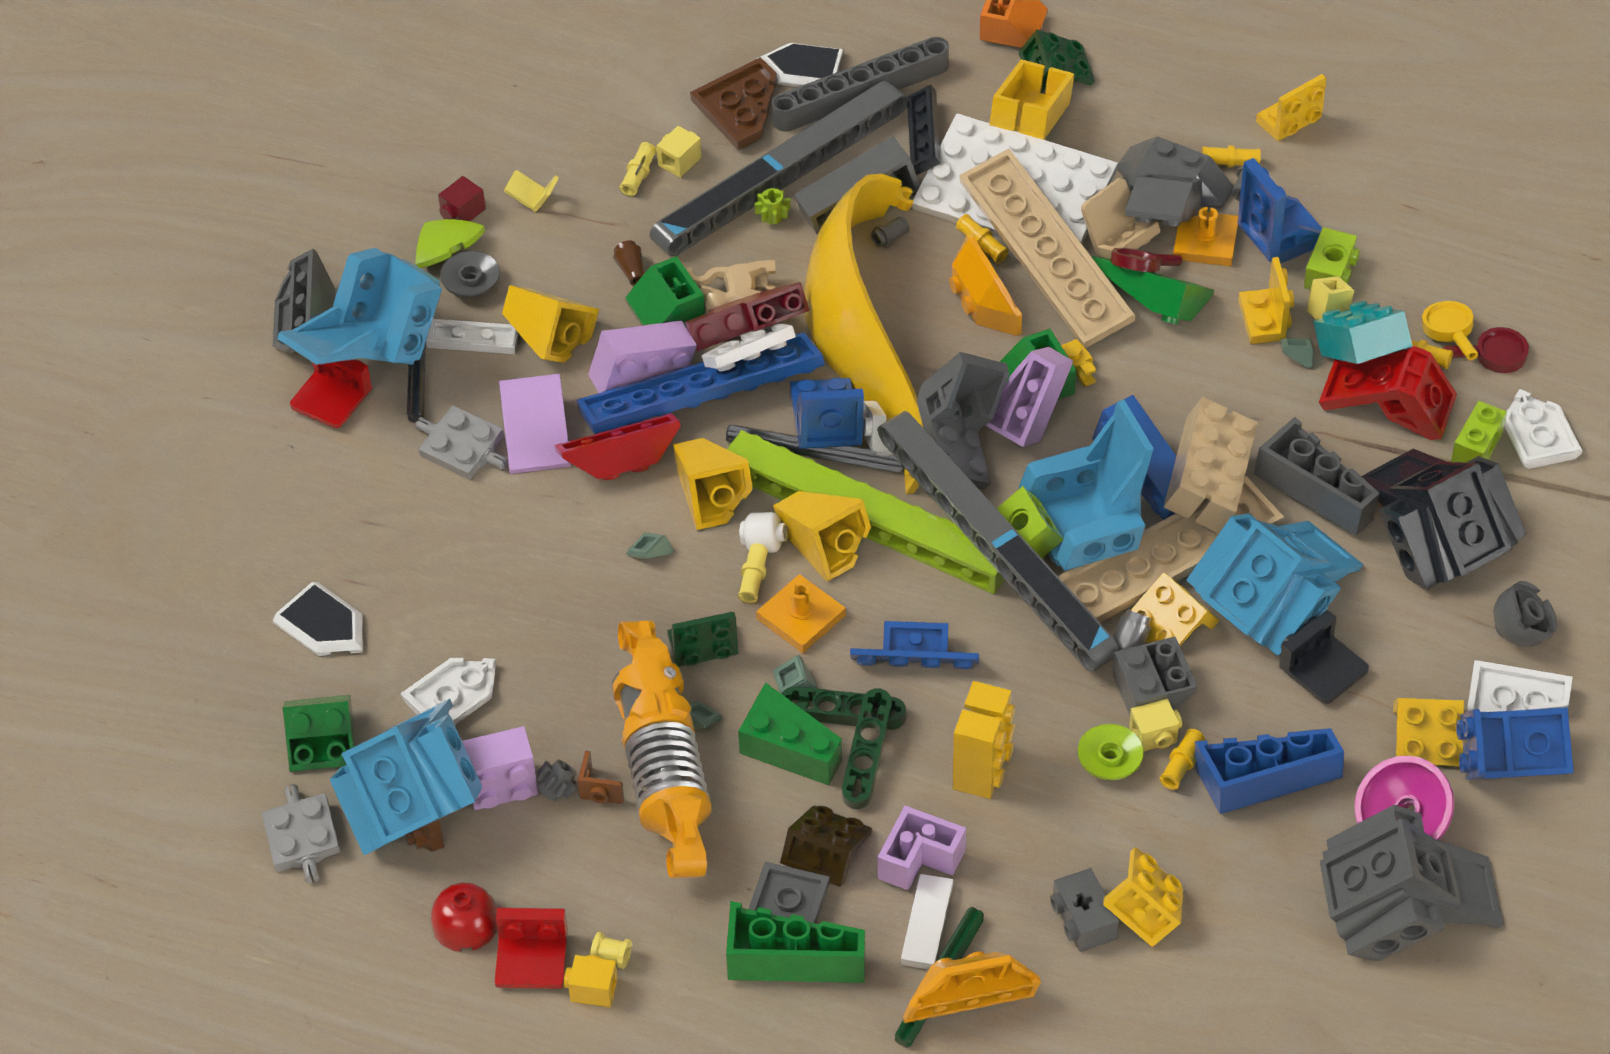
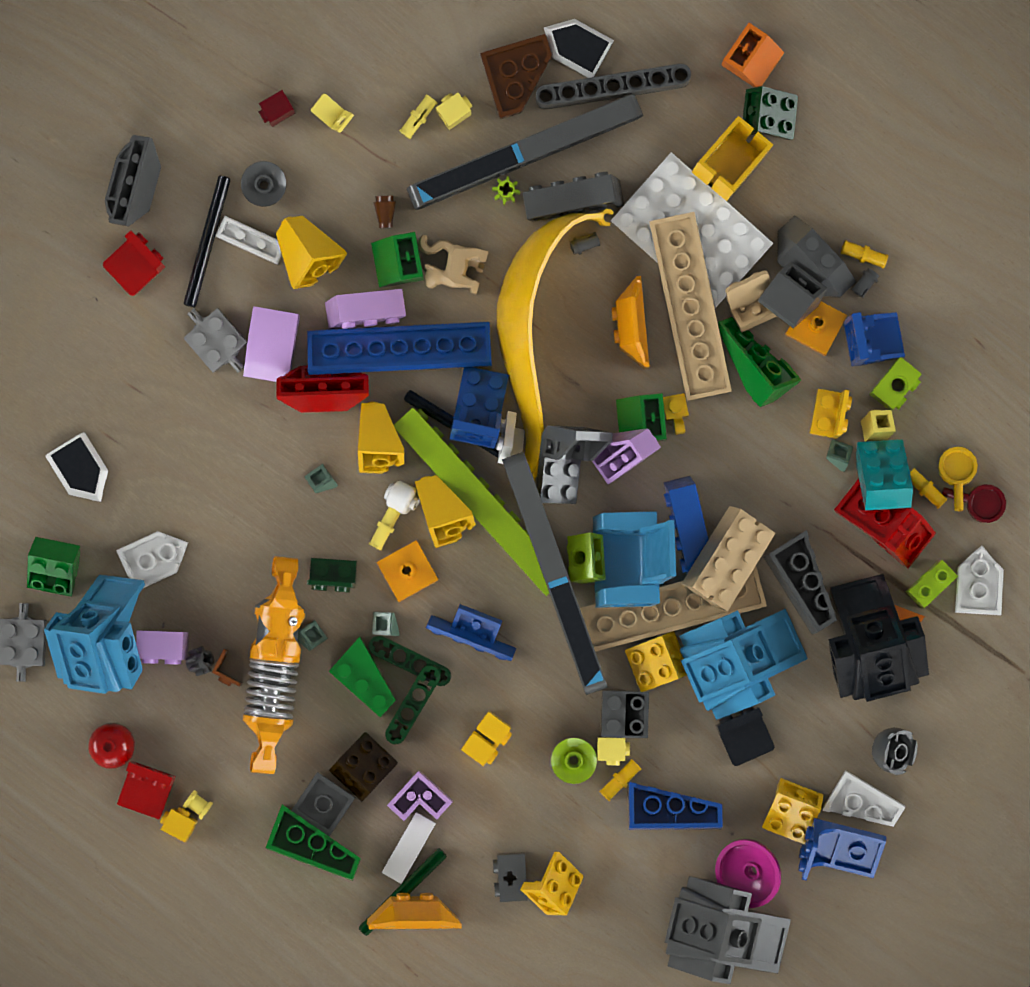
camera: 15 degrees right, 35 degrees up
(388, 318) = (177, 228): dark azure piece -> none
(443, 238) = (253, 142): lime brick -> none
(747, 314) = (458, 297): dark red slope -> none
(749, 348) = (446, 329): white wing -> none
(923, 129) = (643, 153): black tile -> none
(984, 237) = (650, 274): yellow pin -> none
(1132, 630) = (623, 672): flat silver brick -> none
(1142, 260) = (753, 345): dark red piece -> none
(1294, 109) = (927, 224): yellow bracket -> none

